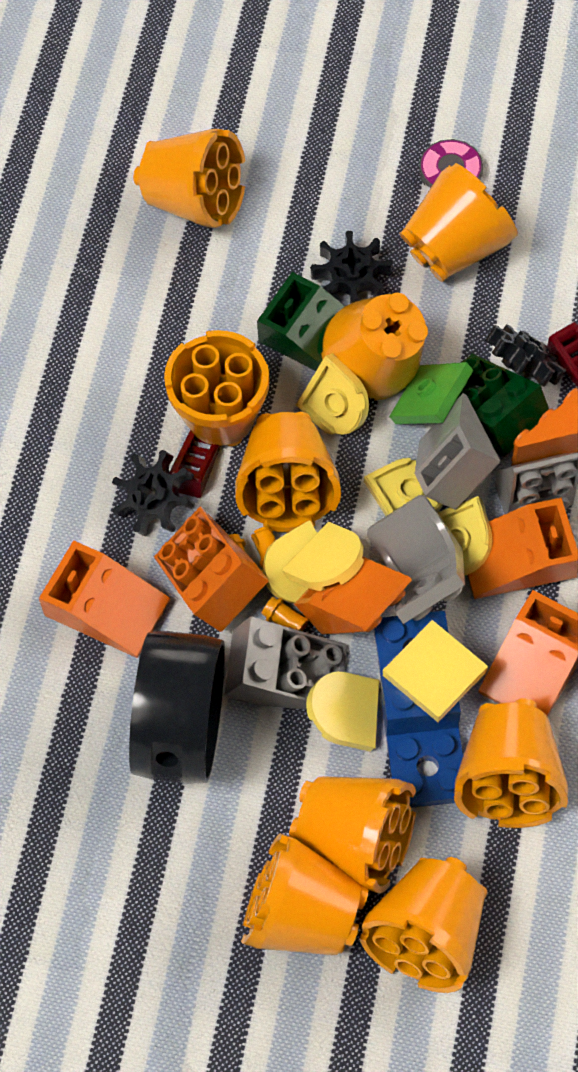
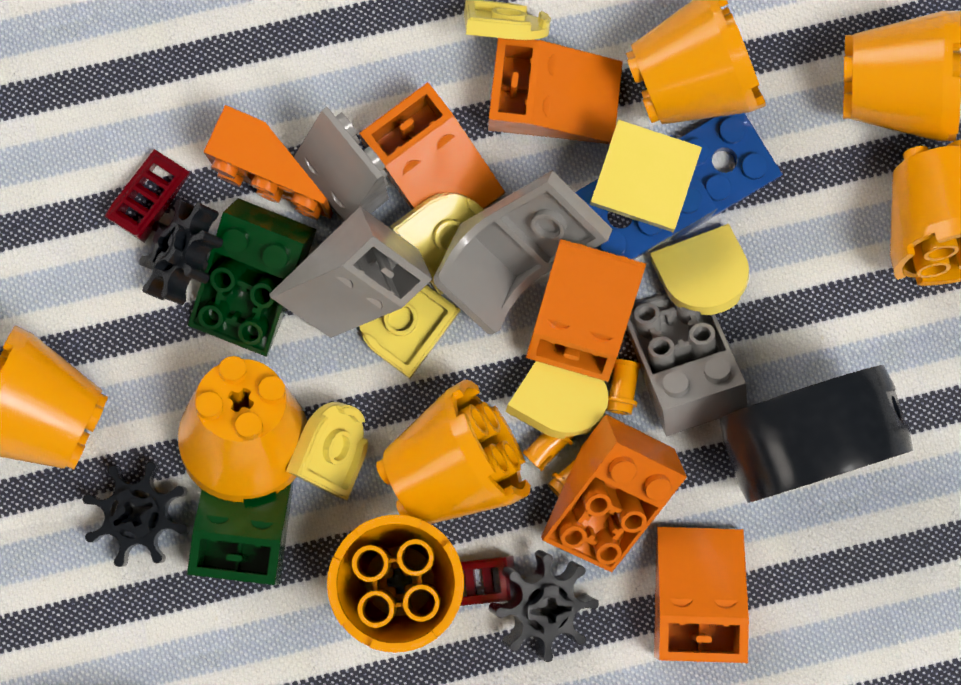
camera: 120 degrees left, 20 degrees up
(327, 559) = (553, 357): light yellow tile -> none
(357, 825) = (842, 198): light orange cone -> none
(431, 393) = (277, 336): bright green plate -> none

